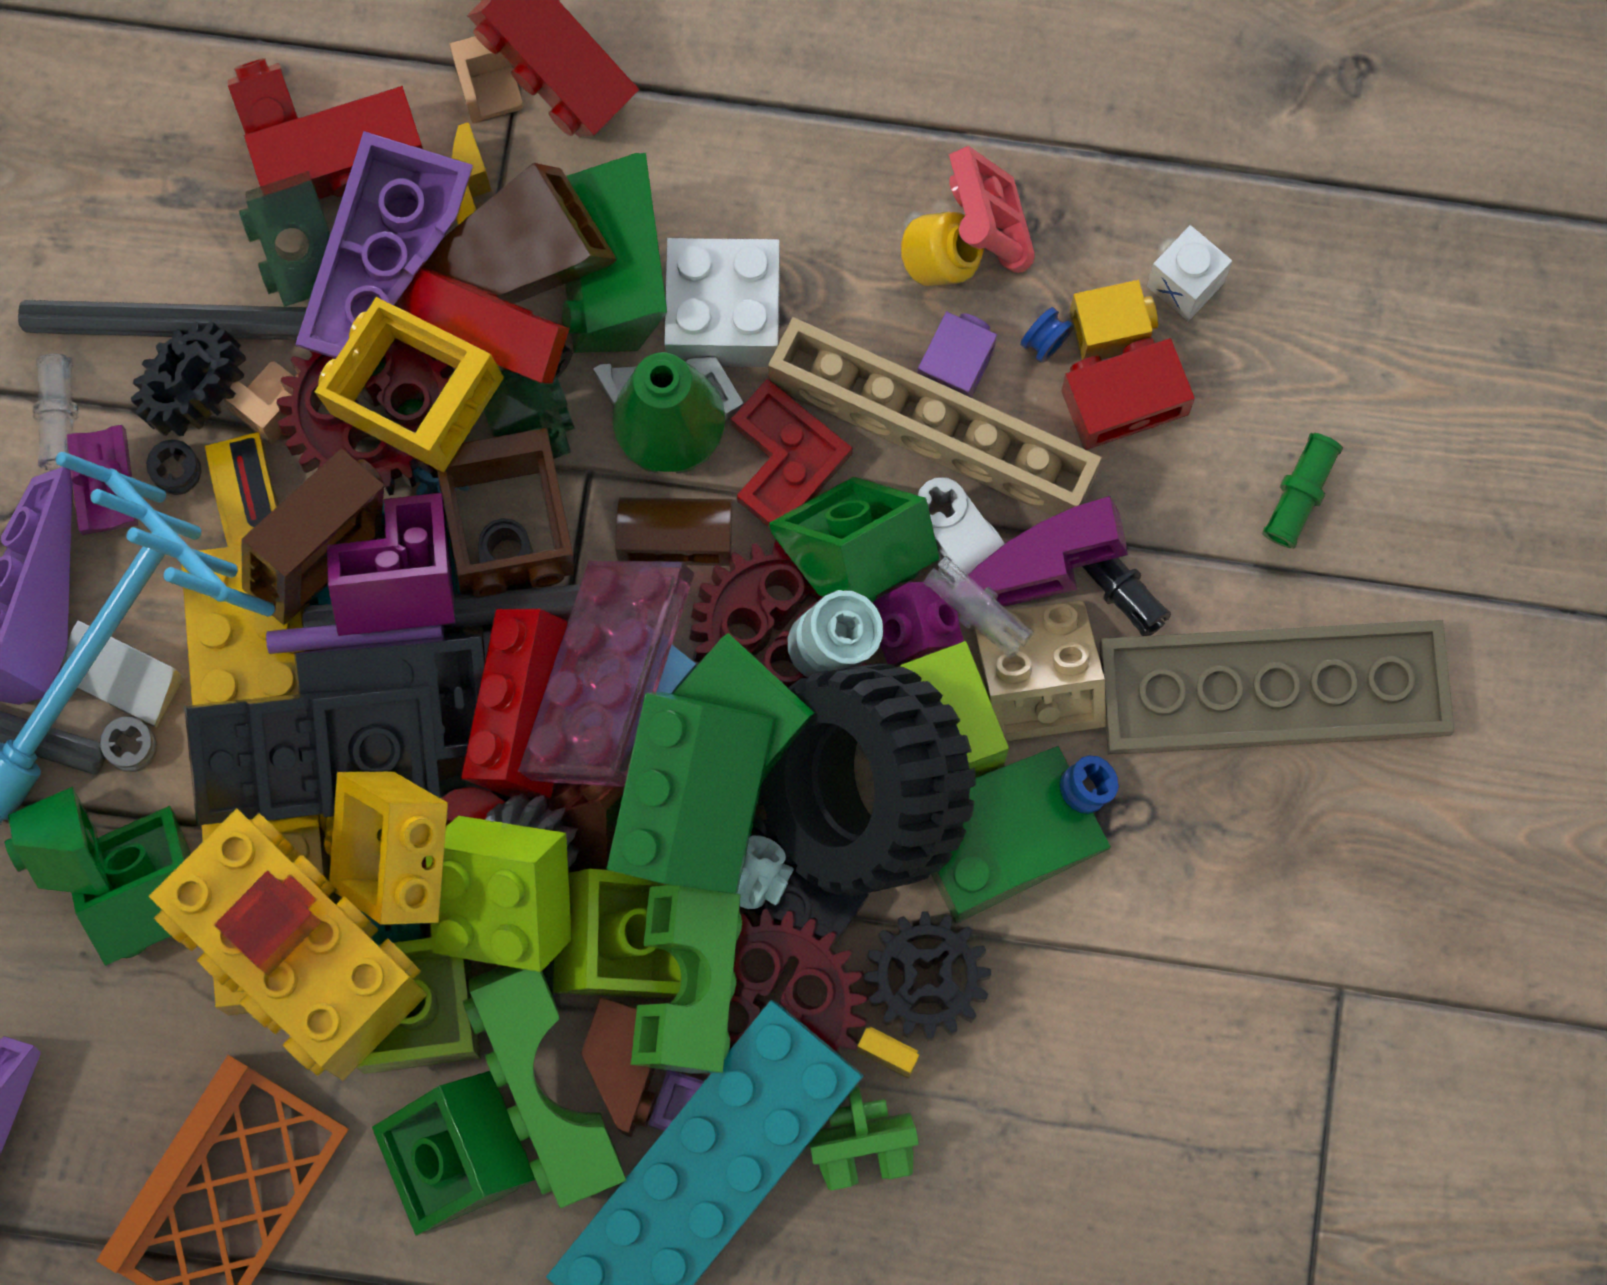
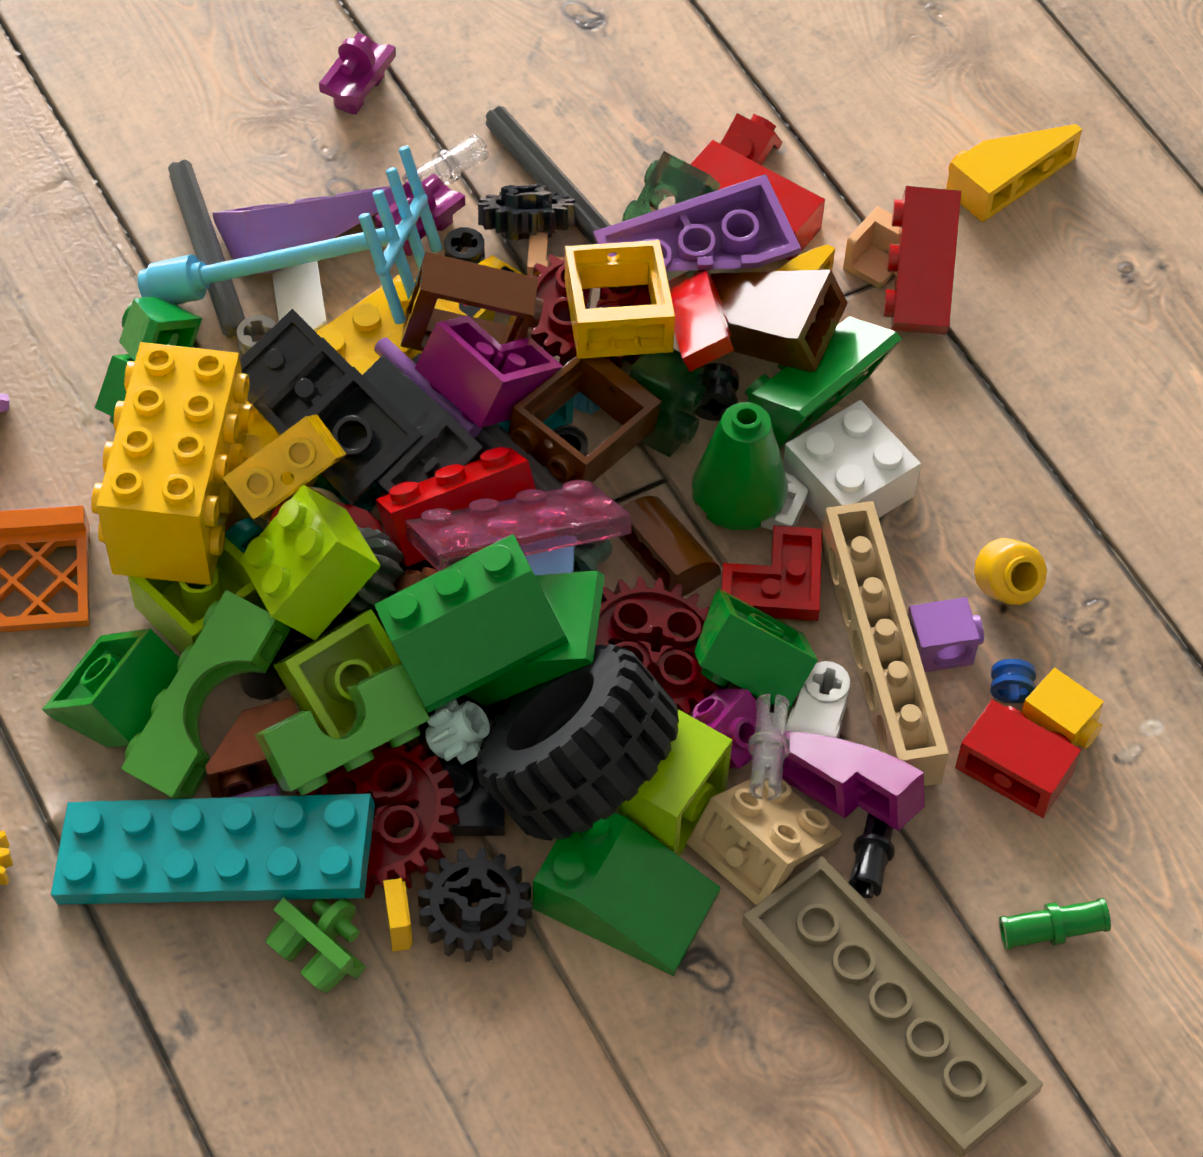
camera: 50 degrees right, 20 degrees down
(269, 920) = (169, 401): clear red brick -> none
(835, 633) = (674, 657): light aqua wheel -> none
(988, 203) = (1077, 573): coral plate -> none
(1100, 773) = (692, 926): blue bush -> none
(1189, 273) = (1142, 738): white brick -> none

